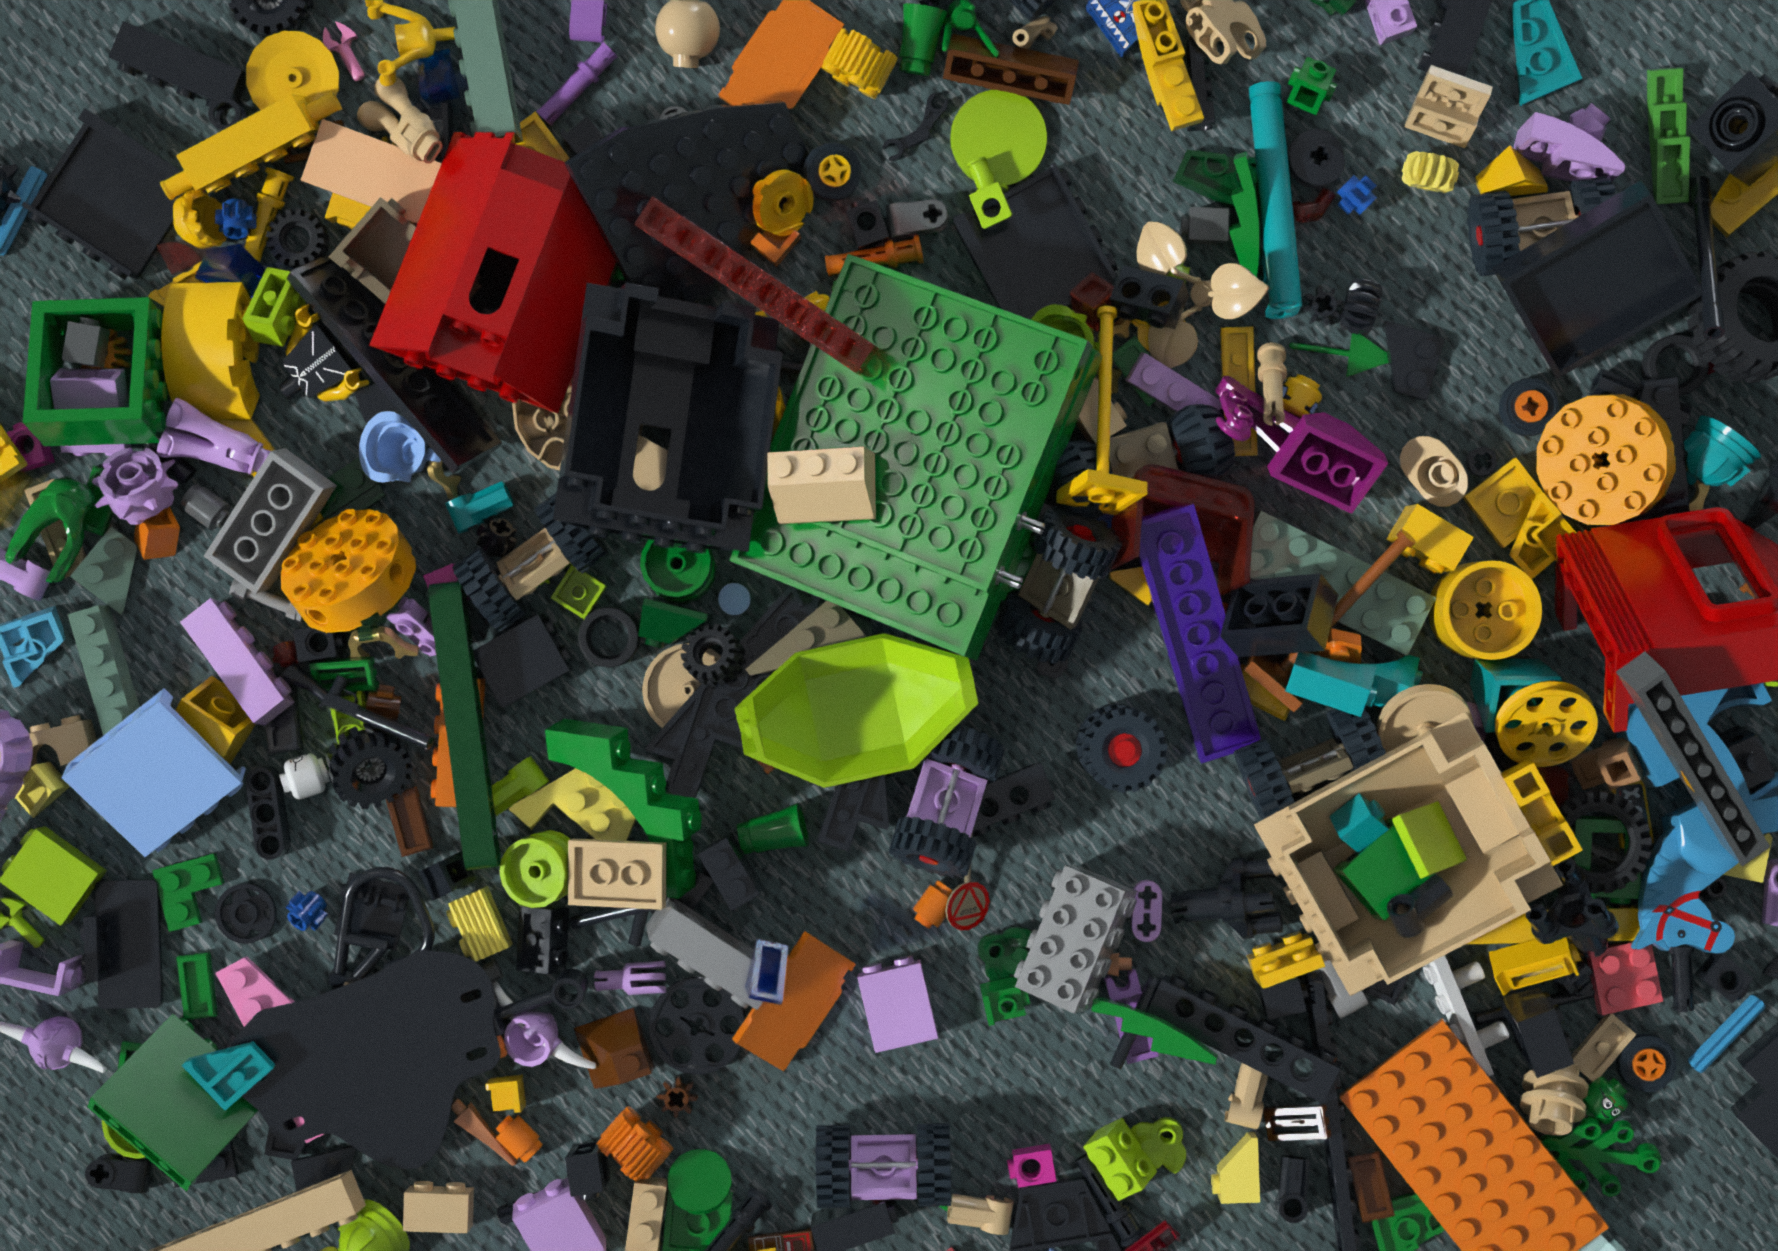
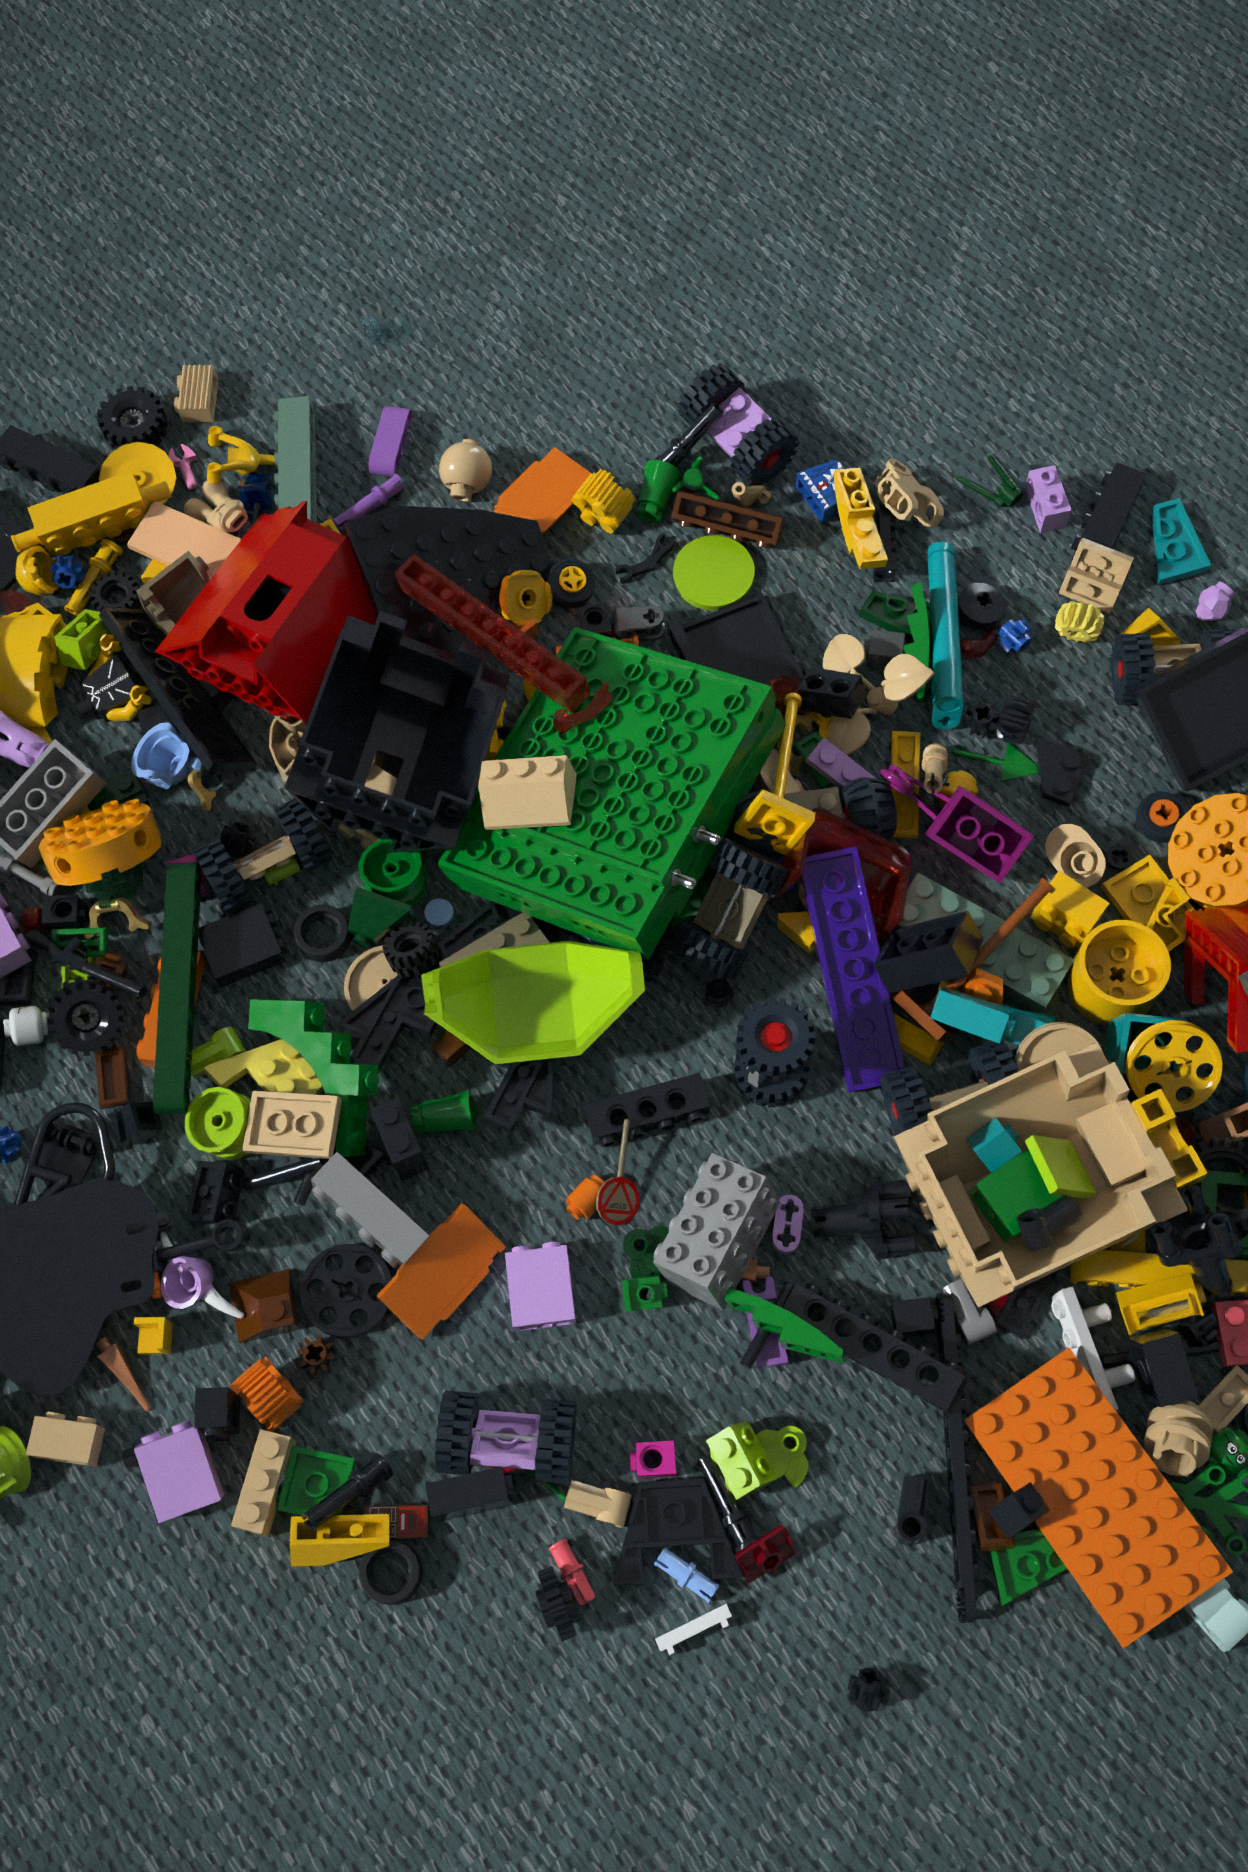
camera: 15 degrees right, 20 degrees down
(231, 265) = (55, 602): clear blue slope -> none
(410, 623) = (148, 899): lavender hinge -> none
(475, 508) = (216, 815): teal piece -> none
(479, 924) = (158, 1172): light yellow brick -> none
(518, 1138) = (156, 1380): orange brick -> none
(579, 592) = (301, 892): lime piece -> none
(628, 978) = (294, 1238): lavender arm -> none
(699, 1181) = (324, 1440): green tile -> none
(767, 972) = (418, 1221): clear blue slope -> none
(892, 357) = (564, 721): none -> clear red piece
(947, 803) = (597, 1110): black plate -> none
(987, 190) = (699, 604): lime bracket -> none
(1239, 1173) = (859, 1489): light yellow slope -> none
(1247, 1102) = (871, 1419): tan piece -> none
(1284, 960) = (918, 1277): yellow plate -> none
(1311, 85) = (973, 551): green brick -> none
(1320, 1120) = (944, 1438): tile -> none
(1398, 1186) = (1019, 1510): none -> black brick
(1565, 150) = (1195, 608): lavender slope -> none

